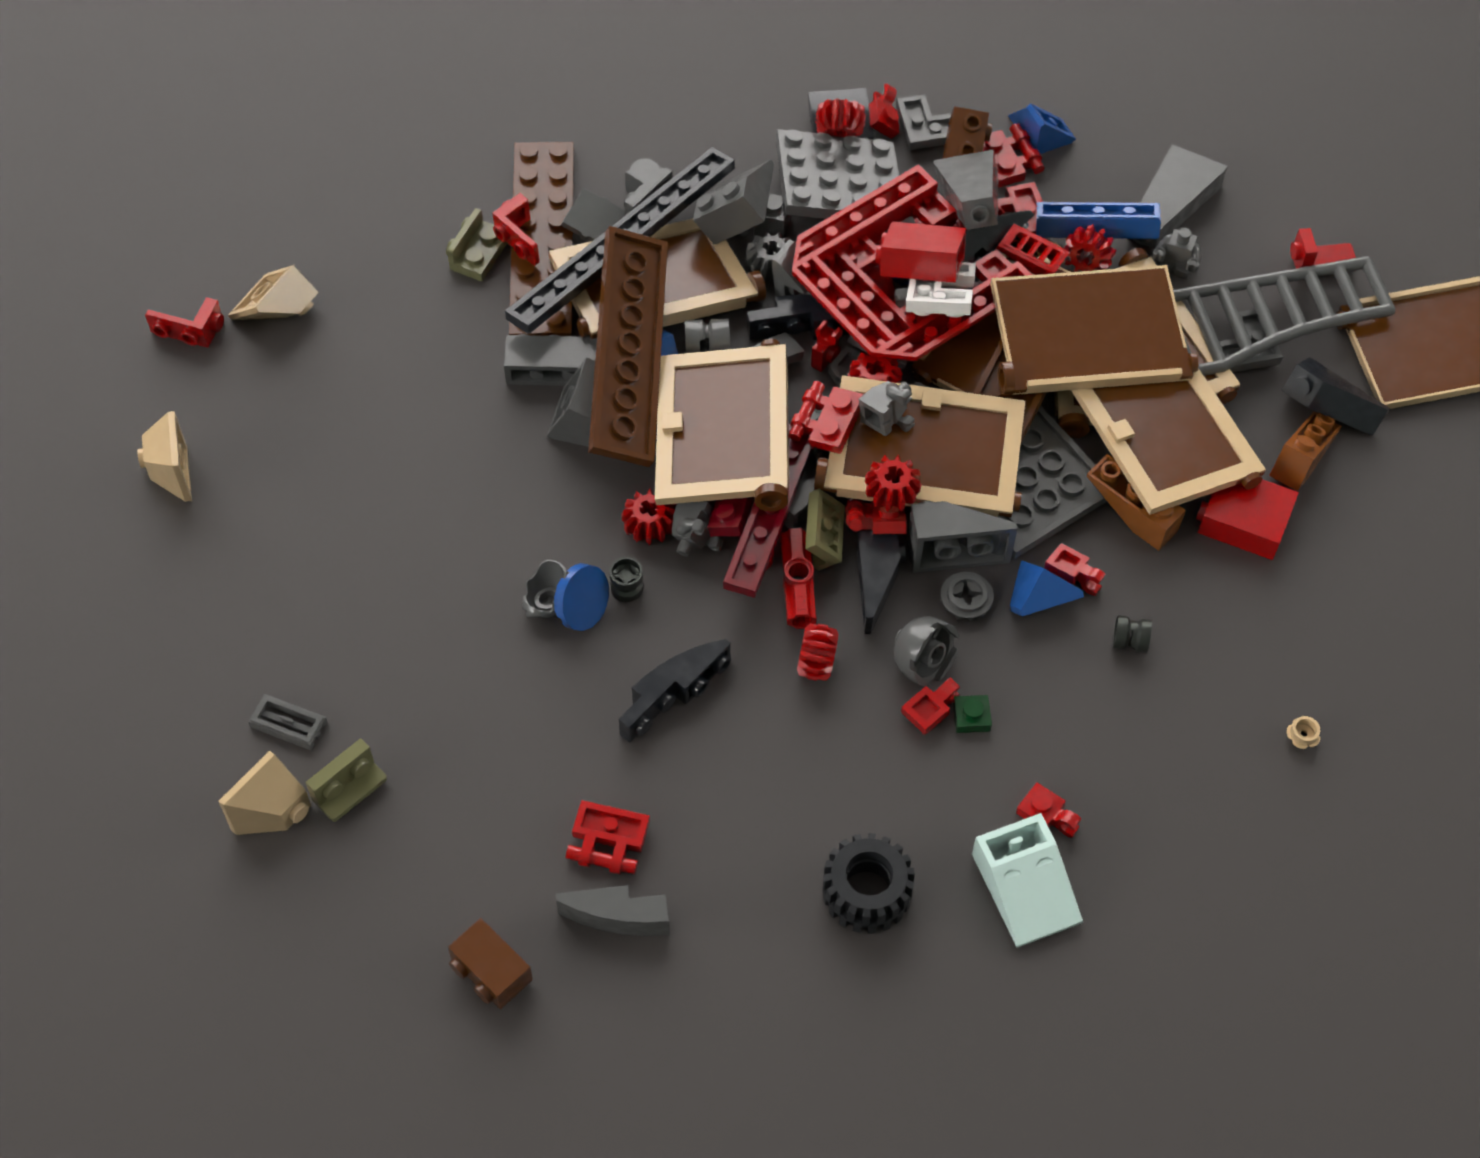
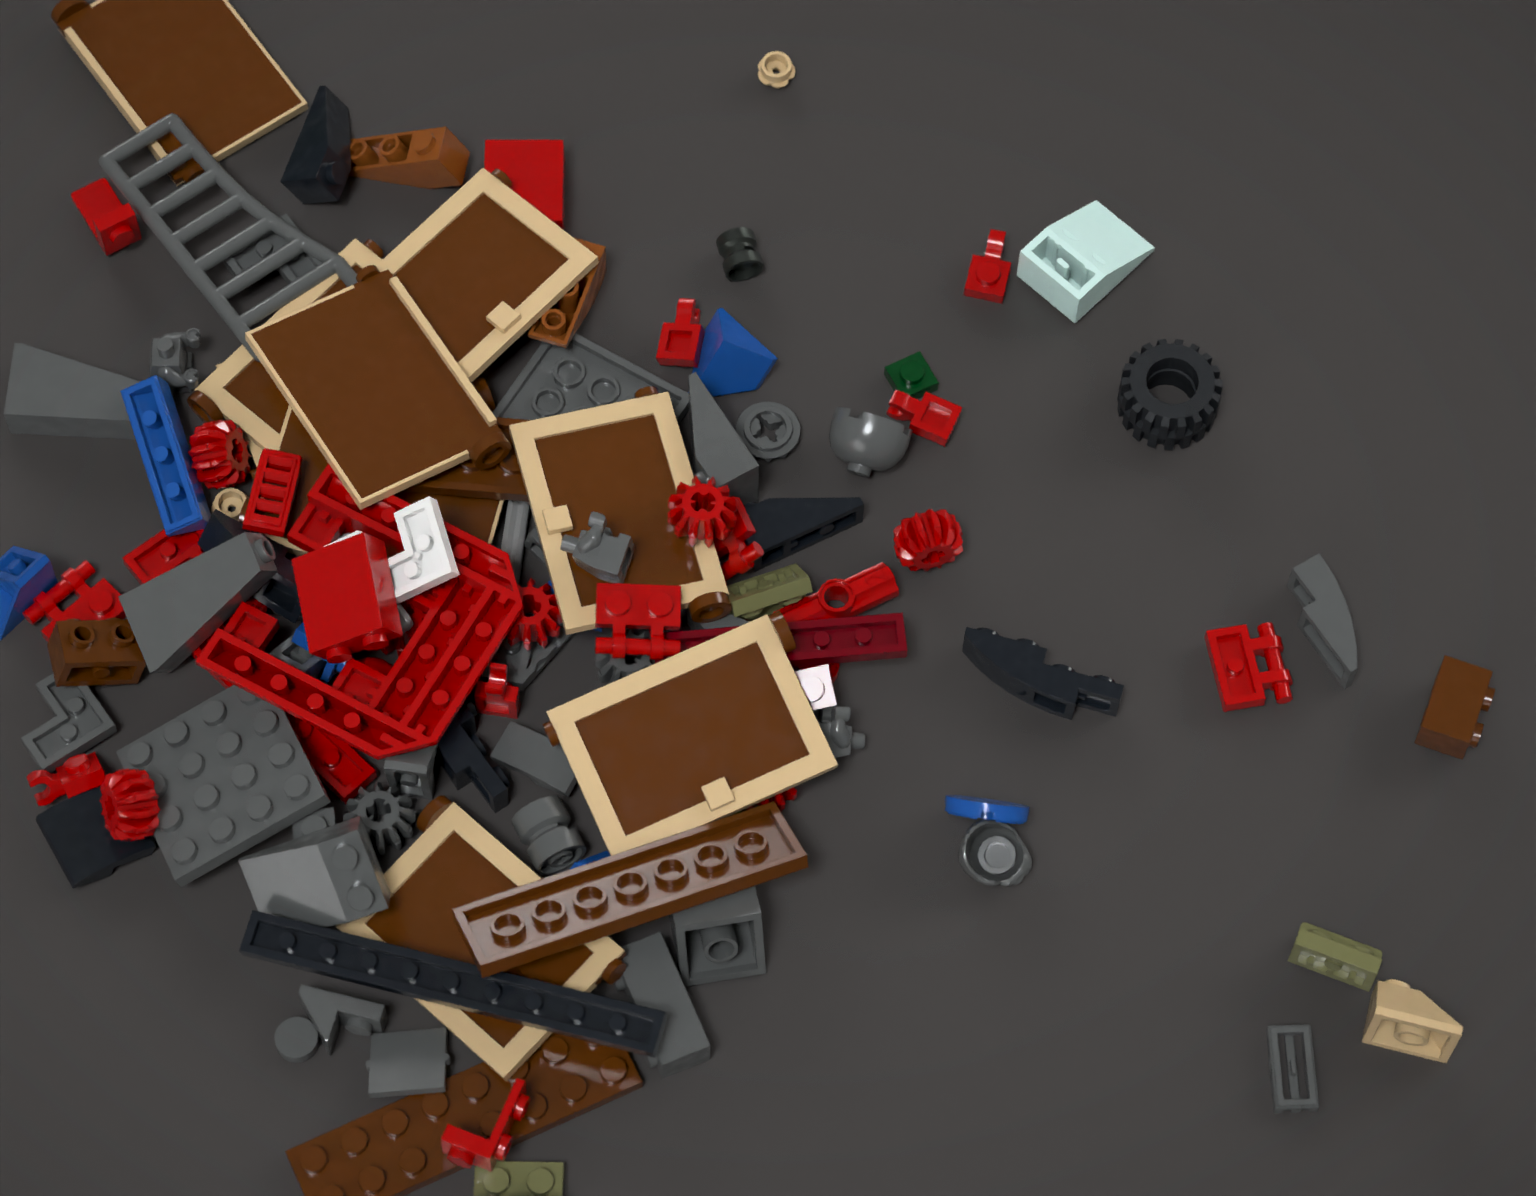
camera: 115 degrees left, 5 degrees up
(626, 579) = (929, 772): pearl dark grey wheel -> none
(647, 519) = (837, 808): red gear -> none

